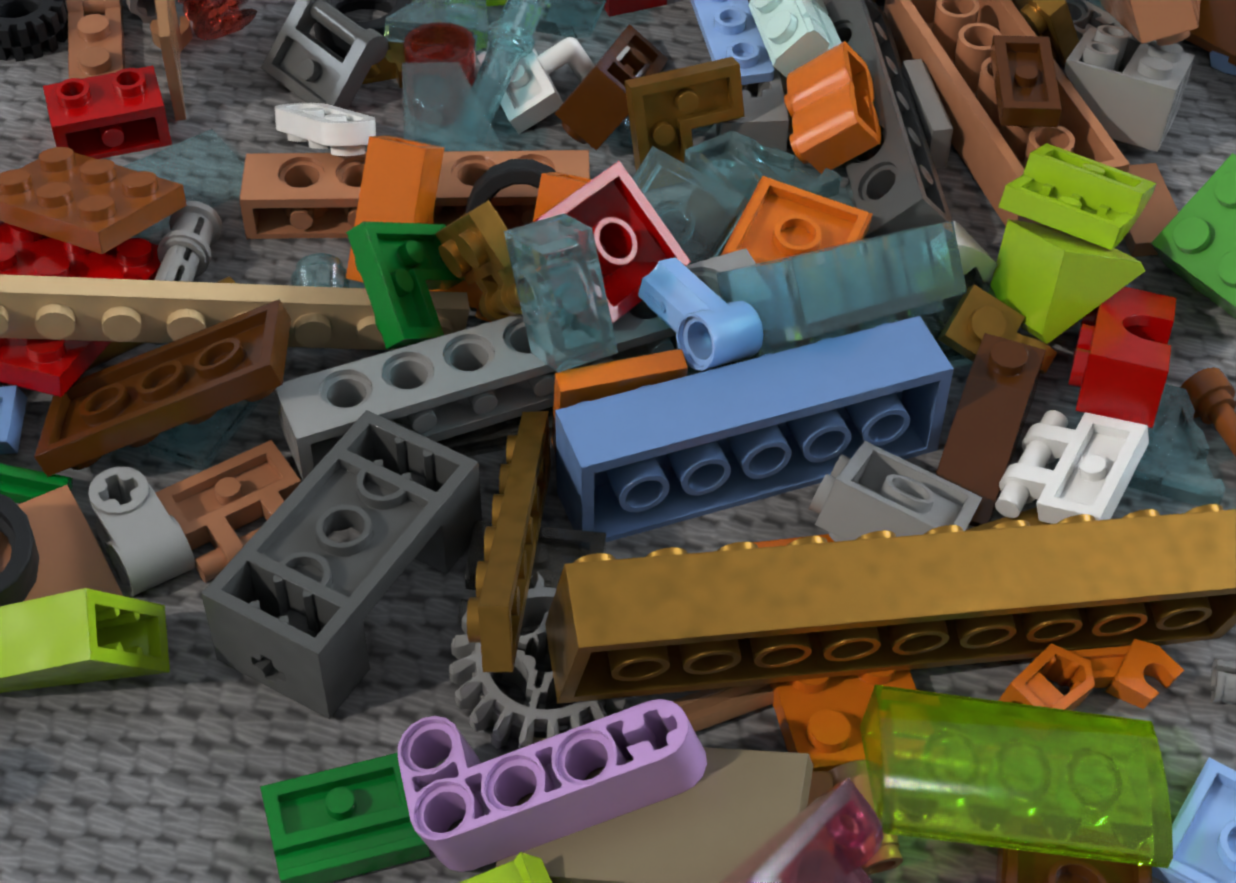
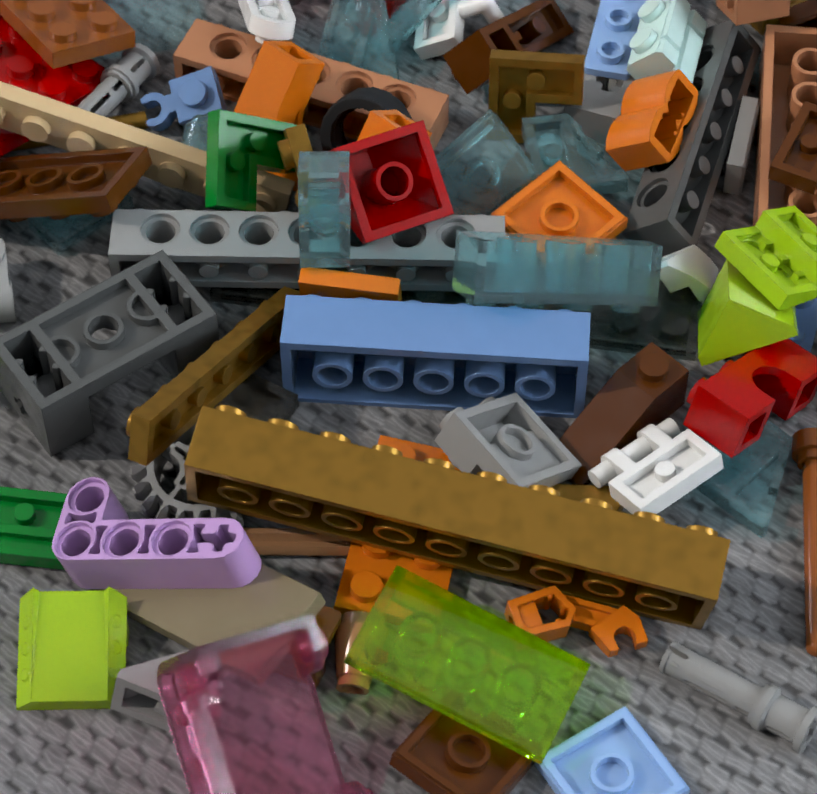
camera: 25 degrees right, 5 degrees up
(227, 498) = (56, 278): nougat plate -> none
(282, 242) = (189, 96): none -> medium blue plate
(704, 324) = (427, 267): light blue piece -> none
(982, 314) = (673, 336): pearl gold plate -> none

